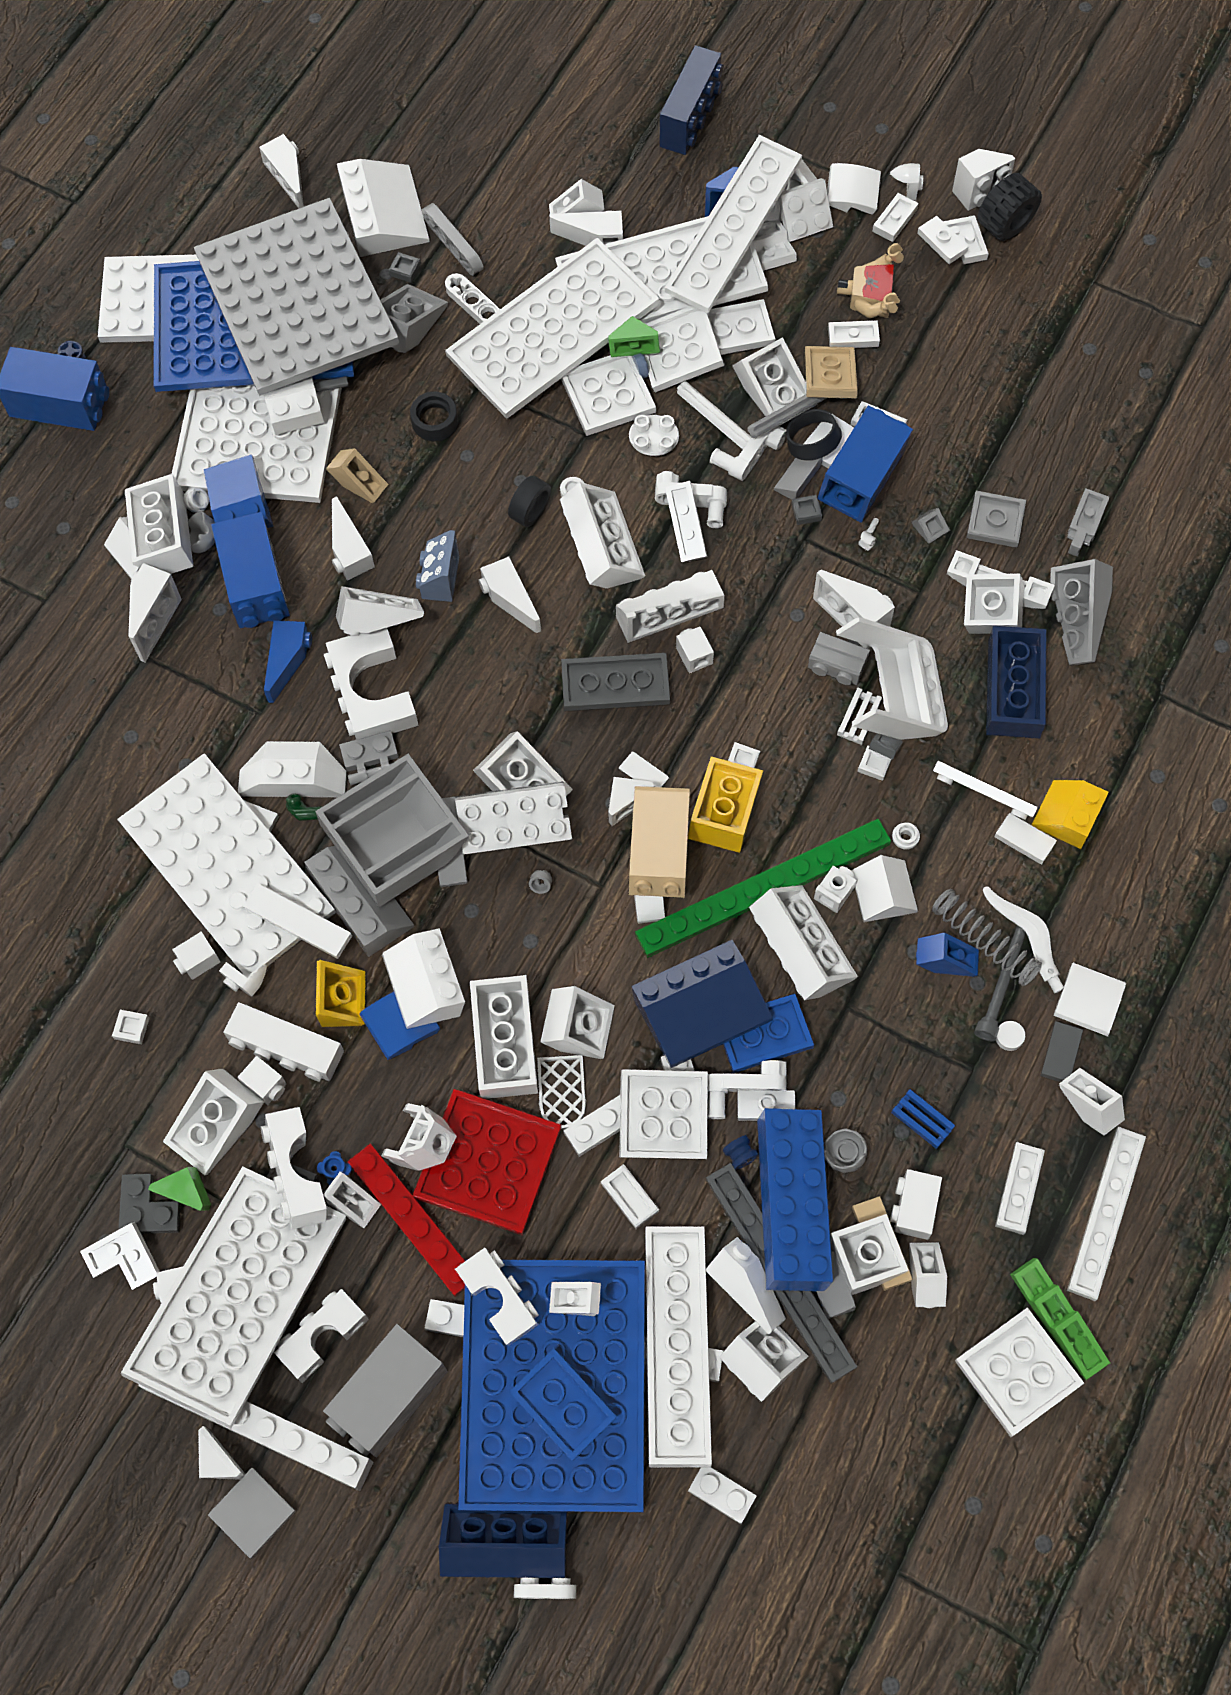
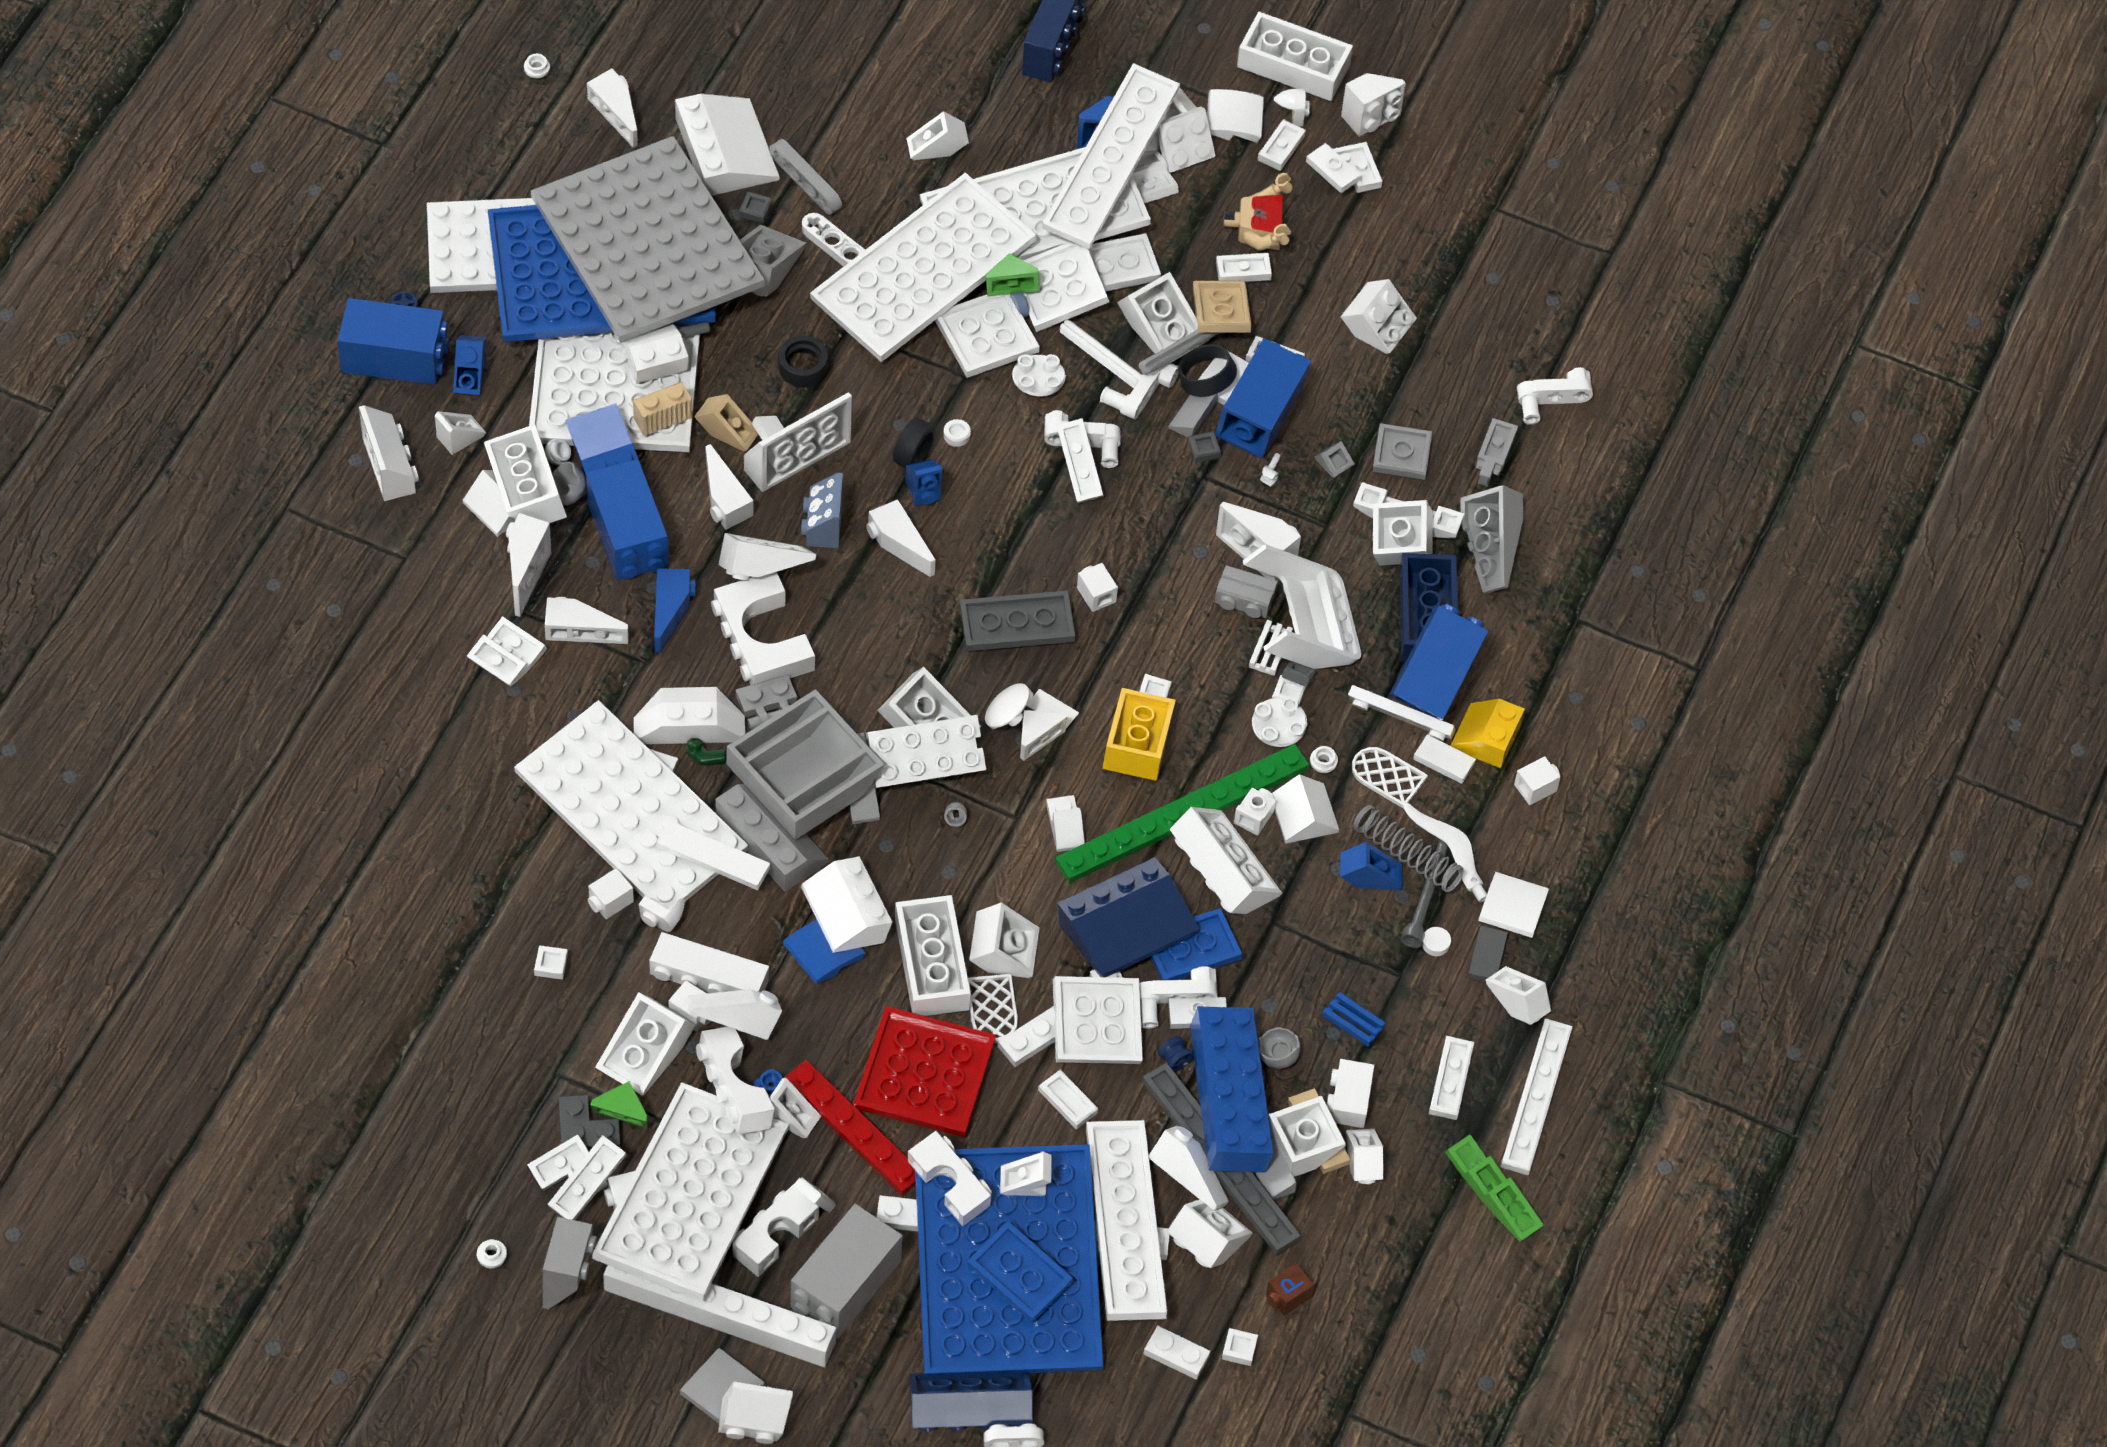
camera: 10 degrees left, 10 degrees down
(35, 497) = (387, 453): none -> white slope
(43, 1351) = (491, 1261): none -> white plate
(94, 1375) = (566, 1260): none -> light grey slope
(106, 475) = (457, 430): none -> white slope
(124, 411) = (469, 364): none -> blue slope
(127, 699) = (507, 652): none -> white slope
(135, 1274) = (587, 1179): none -> white plate
(193, 670) = (578, 622): none -> white slope
(214, 1459) = (683, 1342): white slope -> none
(219, 131) = (535, 61): none -> white plate
(276, 1556) = (754, 1412): none -> white slope
(294, 460) = (662, 408): none -> tan brick
(305, 1092) = (741, 1009): none -> white slope
(339, 995) = (762, 925): yellow slope -> none
(362, 1302) = (815, 1194): none -> white tile
(396, 482) = (767, 426): none -> white tile
(421, 498) = (800, 444): none -> white slope
(423, 1152) = (859, 1058): white piece -> none
(536, 539) = (924, 482): none -> blue slope
(588, 226) = (952, 161): white slope -> none
(599, 771) = (1007, 706): none -> white dish
(601, 536) = (991, 478): white slope -> none
(659, 842) = (1076, 766): tan slope -> none
(669, 605) = (1068, 545): white wedge -> none
(787, 1492) = (1239, 1347): none -> white plate
(841, 1429) = (1289, 1289): none -> copper brick
(864, 794) = (1279, 721): none -> white dish
(911, 133) = (1294, 56): none -> white brick
(979, 384) = (1379, 315): none -> white slope
(1002, 855) = (1404, 766): none -> white window
(1009, 206) = (1402, 132): black tyre -> none
(1019, 1372) = (1456, 1235): white plate -> none
(1026, 743) = (1439, 661): none -> blue brick
(1118, 865) = (1537, 780): none -> white brick
(1163, 461) = (1574, 389): none -> white beam

